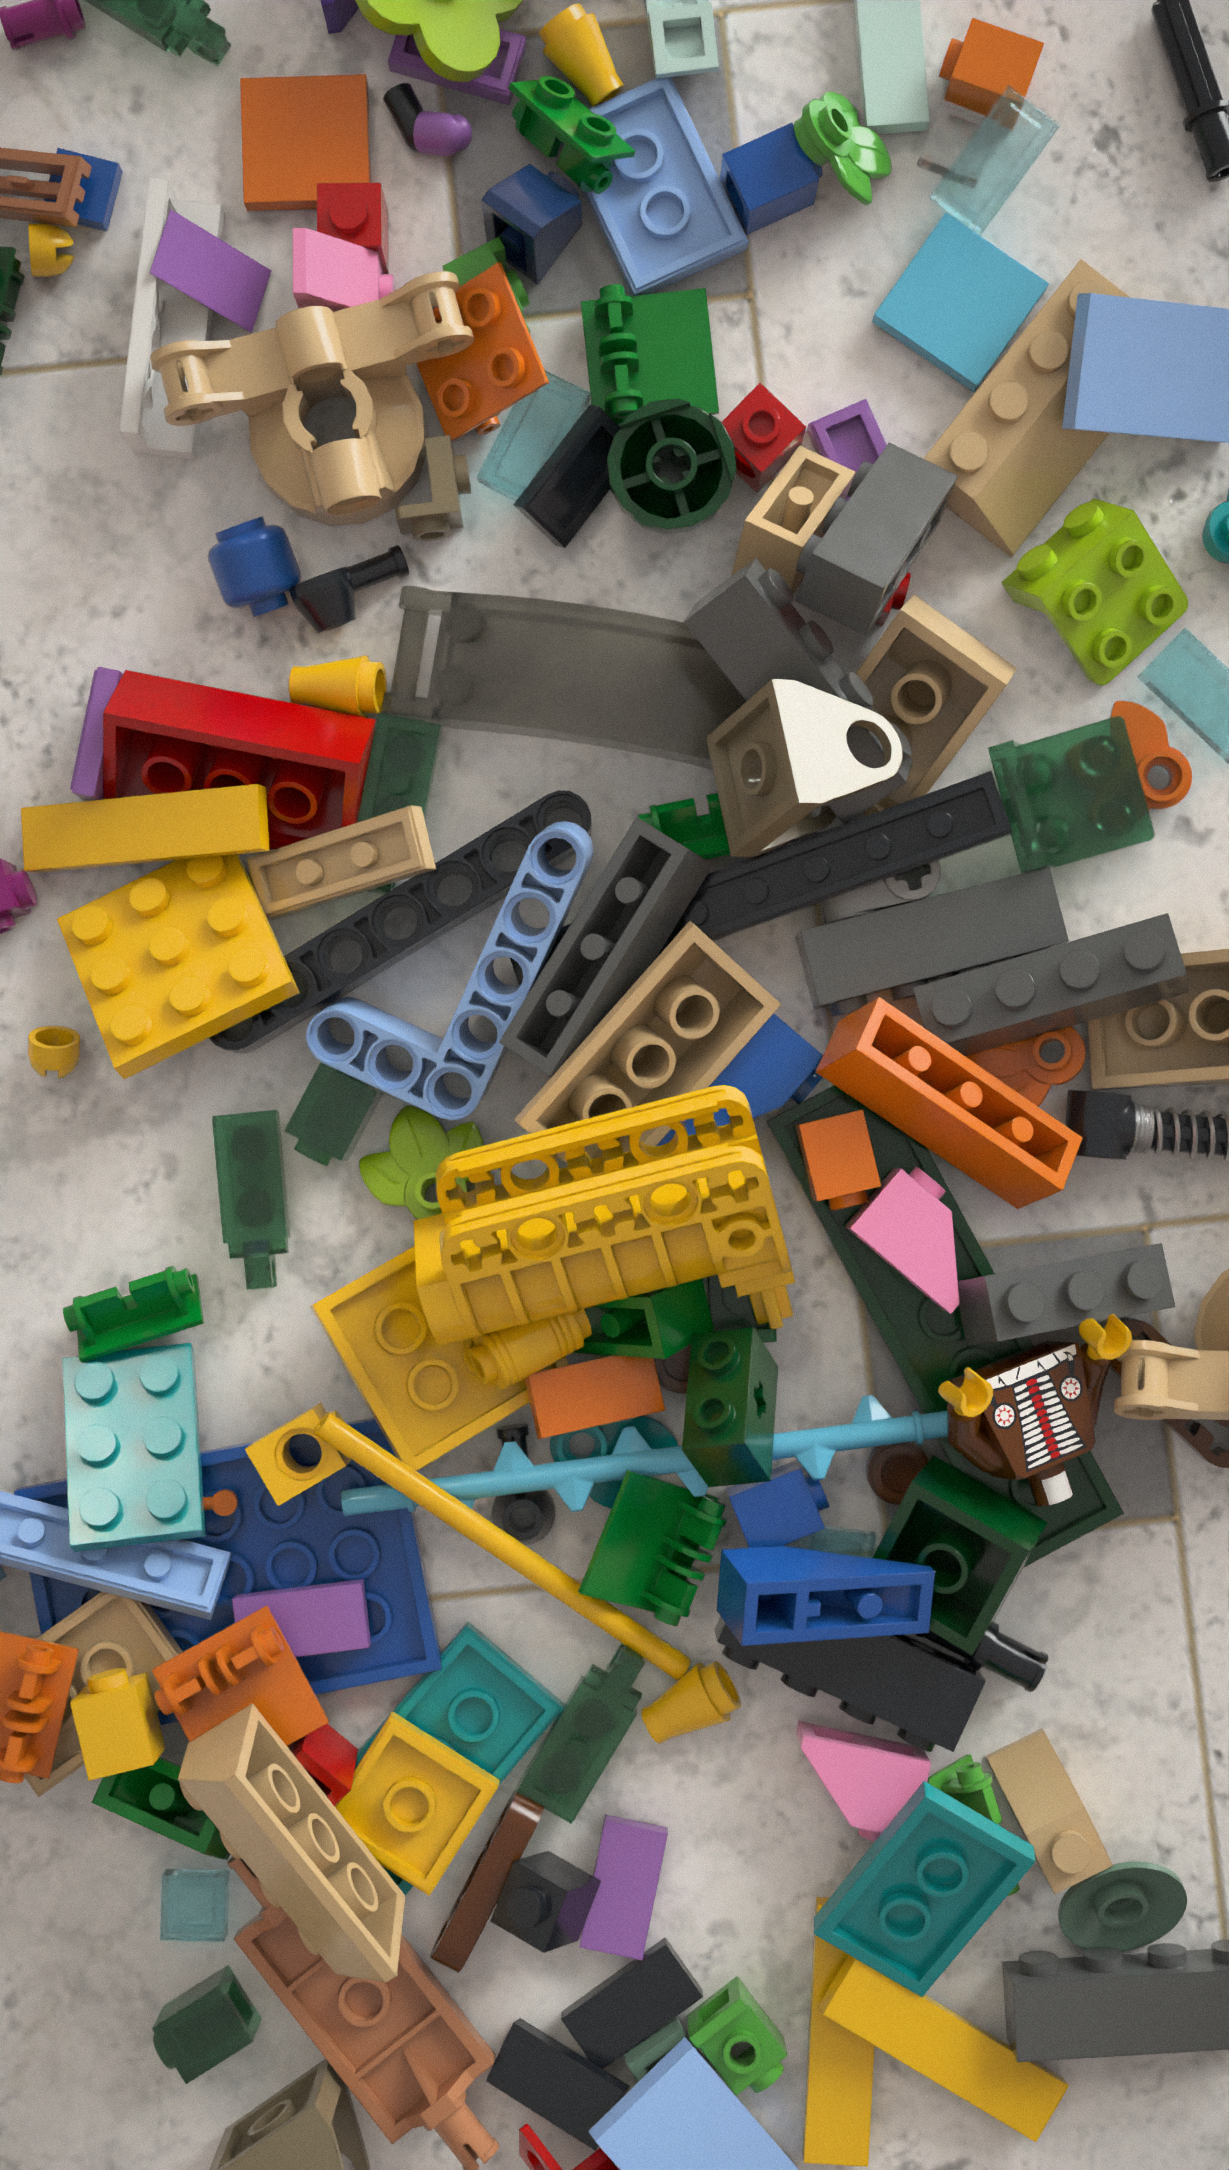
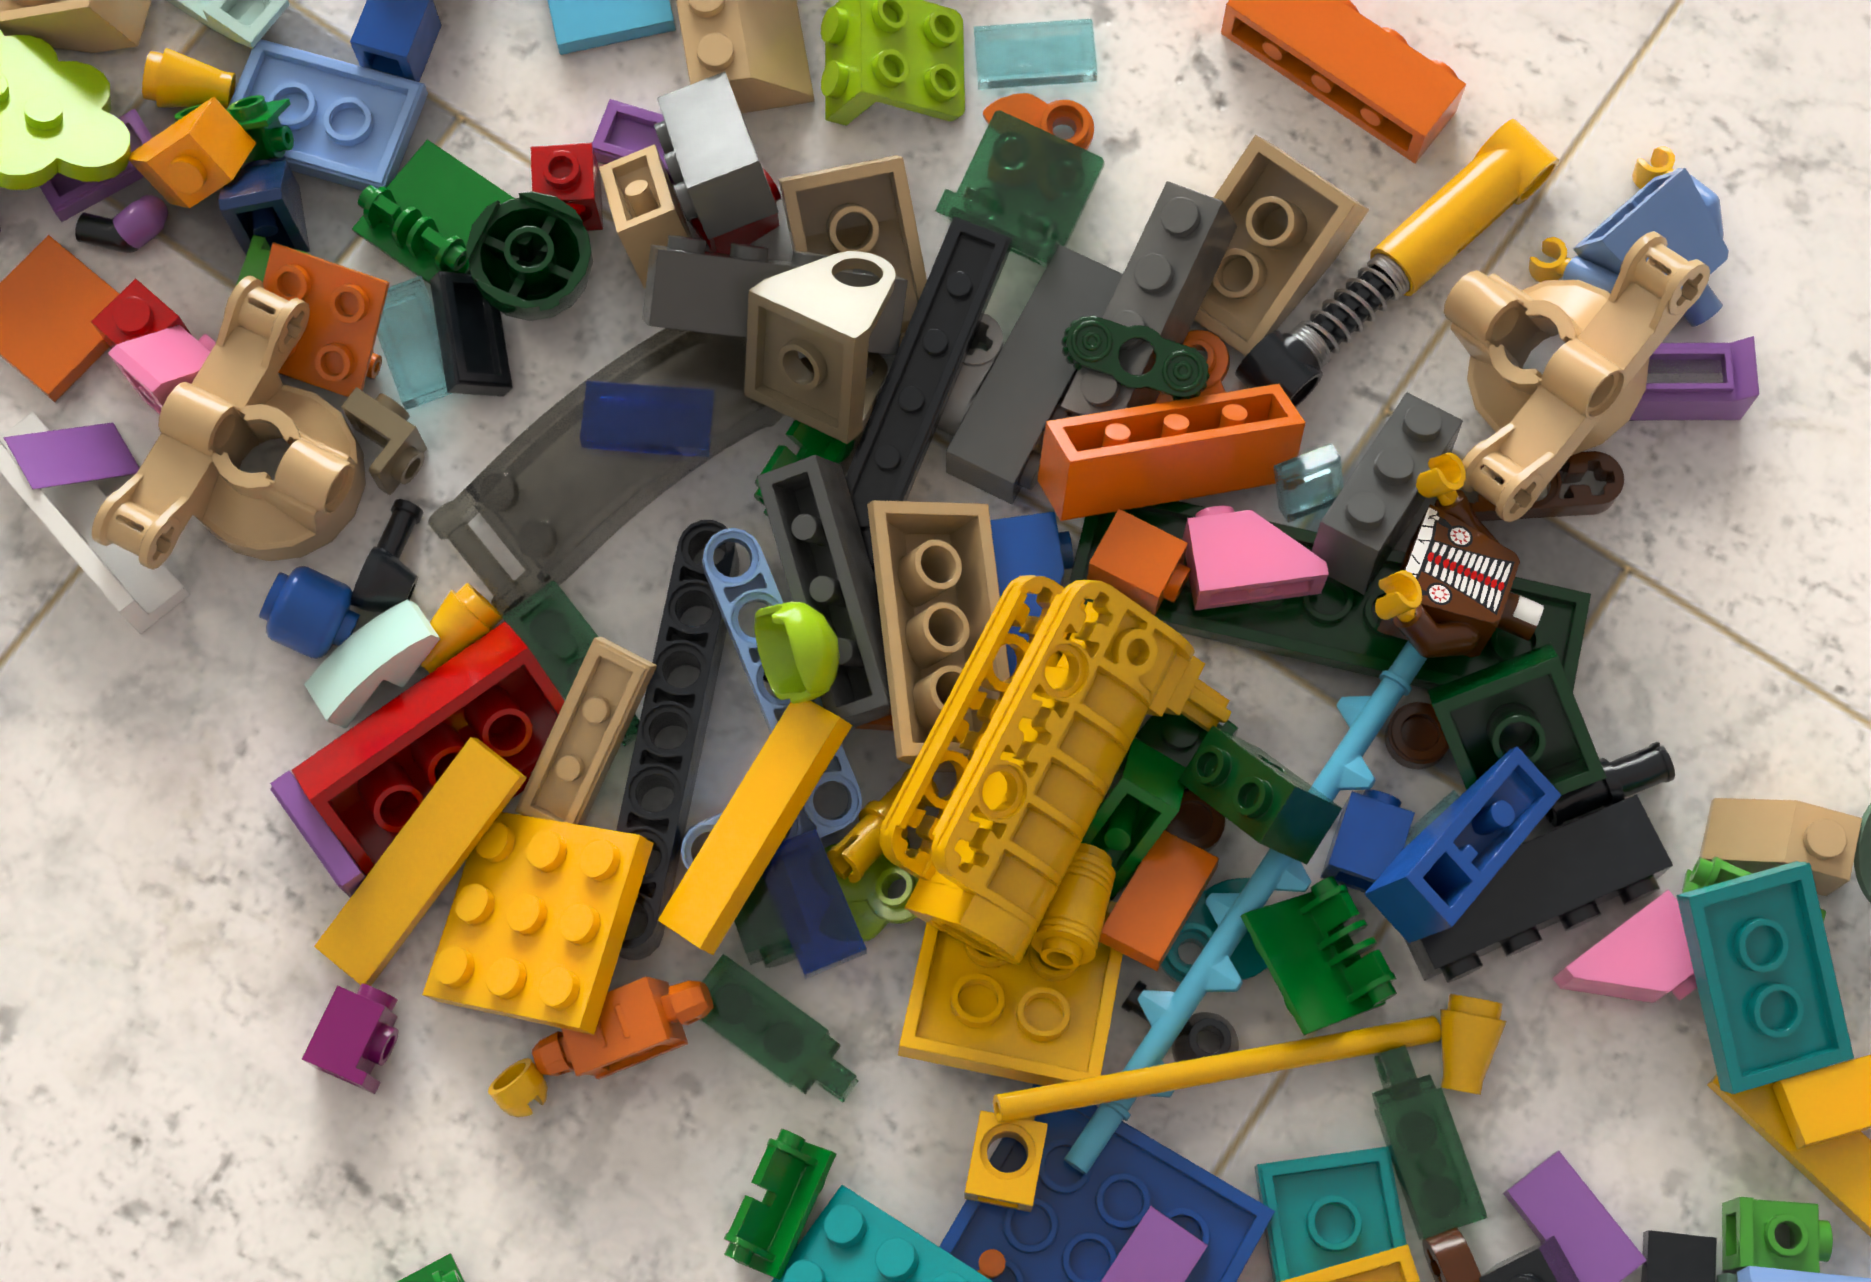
camera: 45 degrees left, 15 degrees down
(162, 1095) = (633, 1027): none -> orange piece
(269, 648) = (381, 650): none -> light aqua slope
(359, 1146) = (812, 905): none -> clear blue tile
(377, 1055) = (754, 824): none -> yellow tile
(437, 1141) = (862, 844): none -> yellow pin
(519, 129) = (194, 155): none -> light orange slope
(524, 976) = (796, 650): none -> lime hair
(615, 686) = (647, 418): none -> clear blue tile
(982, 976) = (1096, 346): none -> dark green piece
(1026, 1225) = (1308, 482): none -> clear light blue tile

